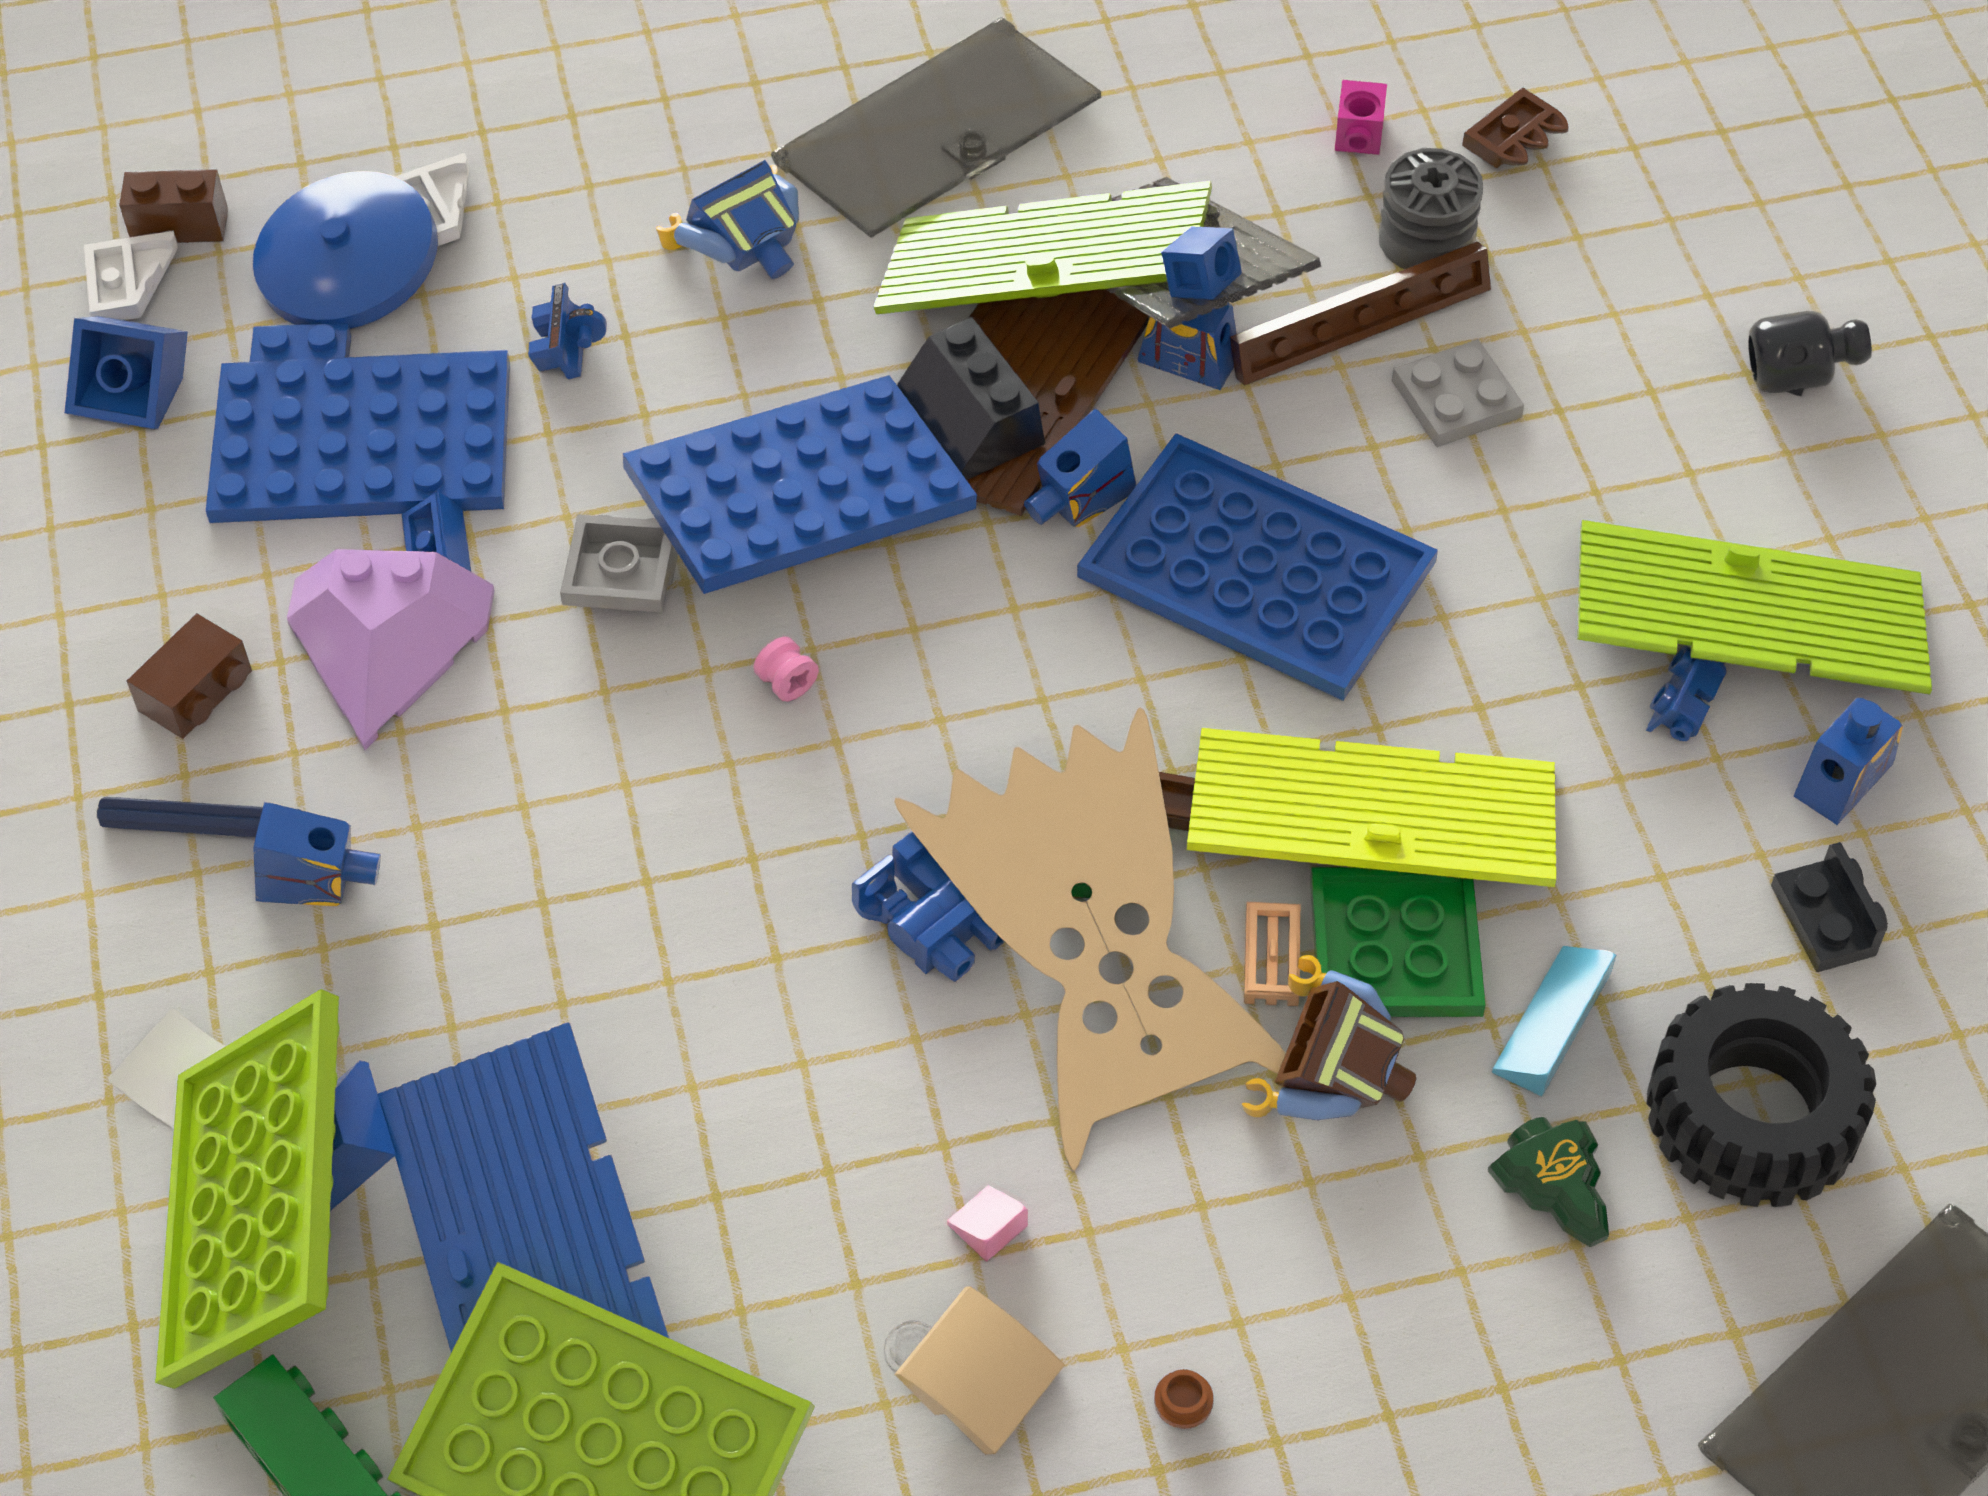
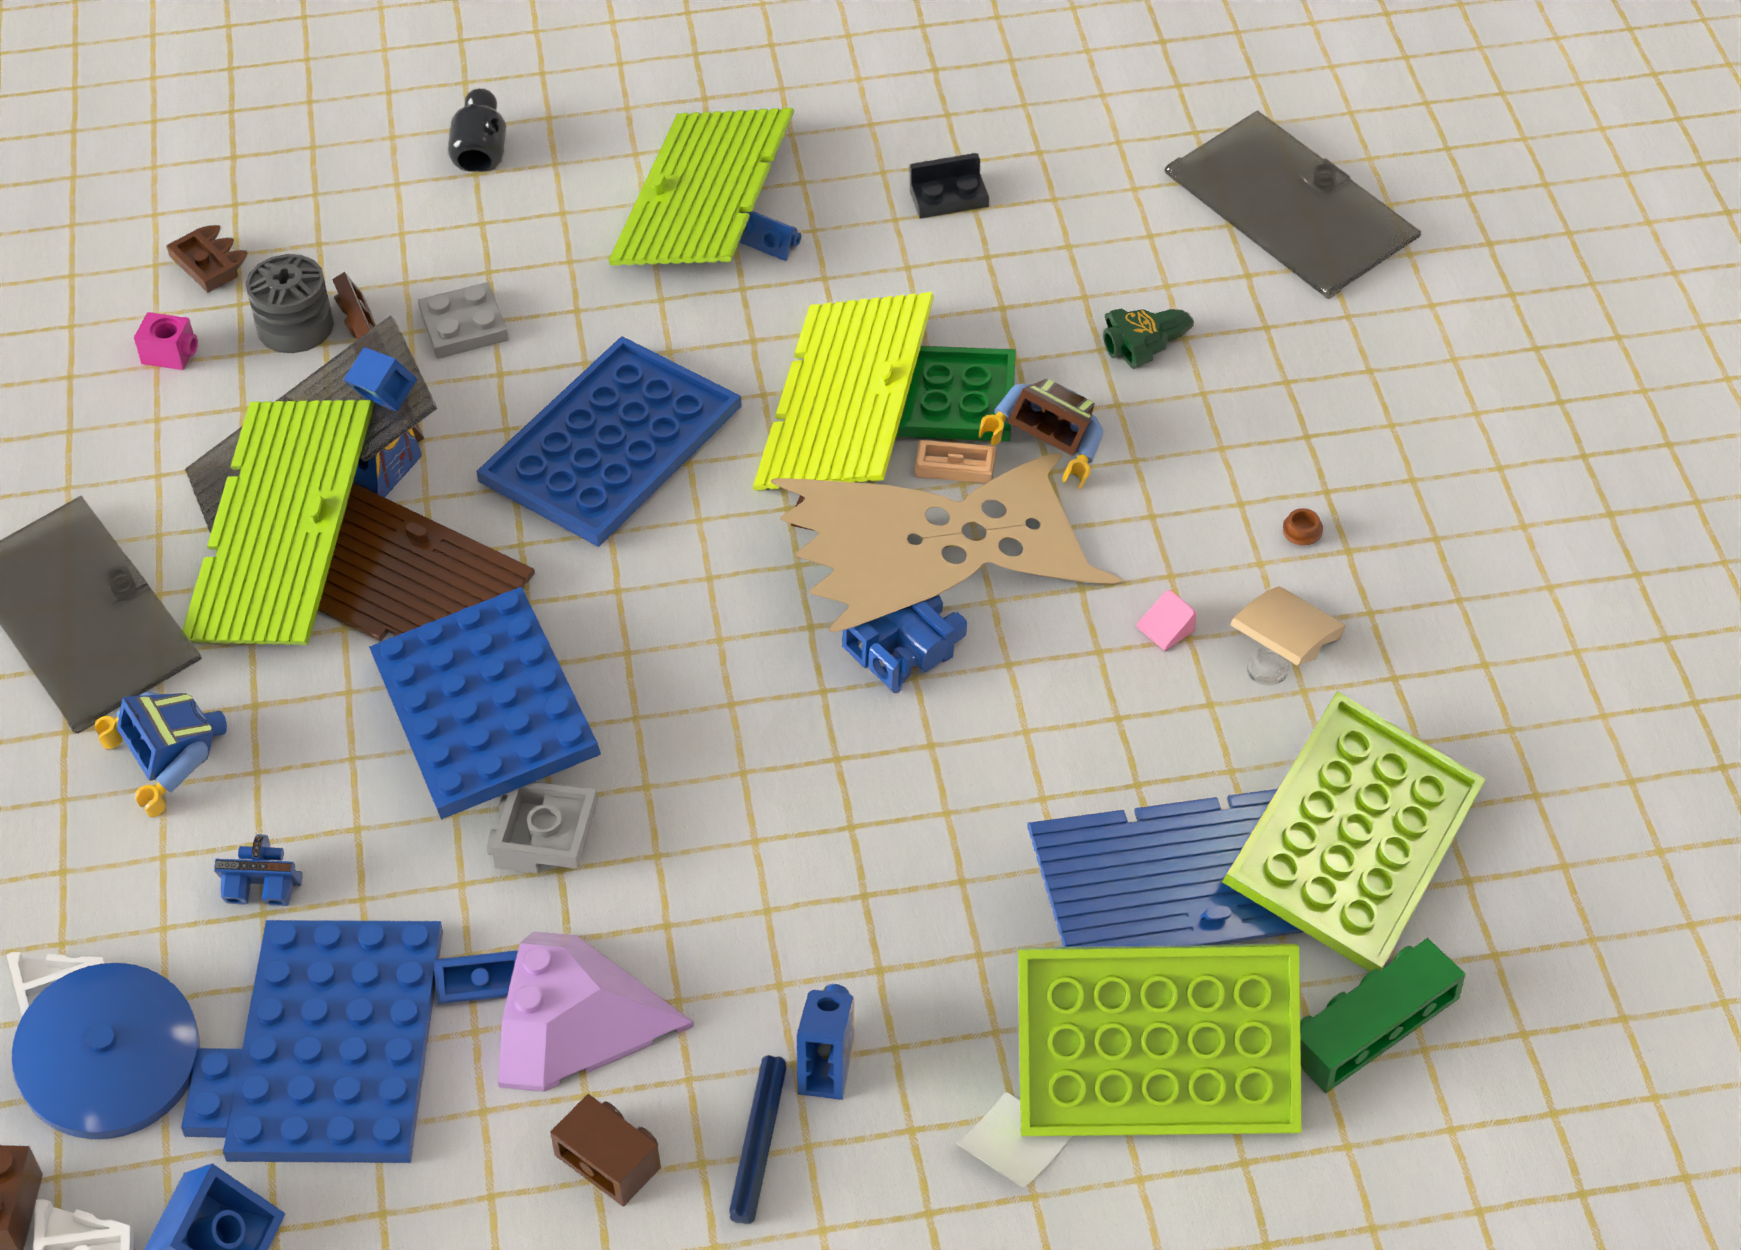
camera: 85 degrees left, 5 degrees down
(786, 668) = (667, 721): bright pink wheel -> none
(972, 399) = (419, 581): black slope -> none
(1083, 473) = (512, 519): blue torso -> none
(1554, 1017) = (1021, 322): slope -> none
(1780, 1036) = (1096, 256): black tyre -> none
(1860, 743) = (839, 154): blue torso -> none

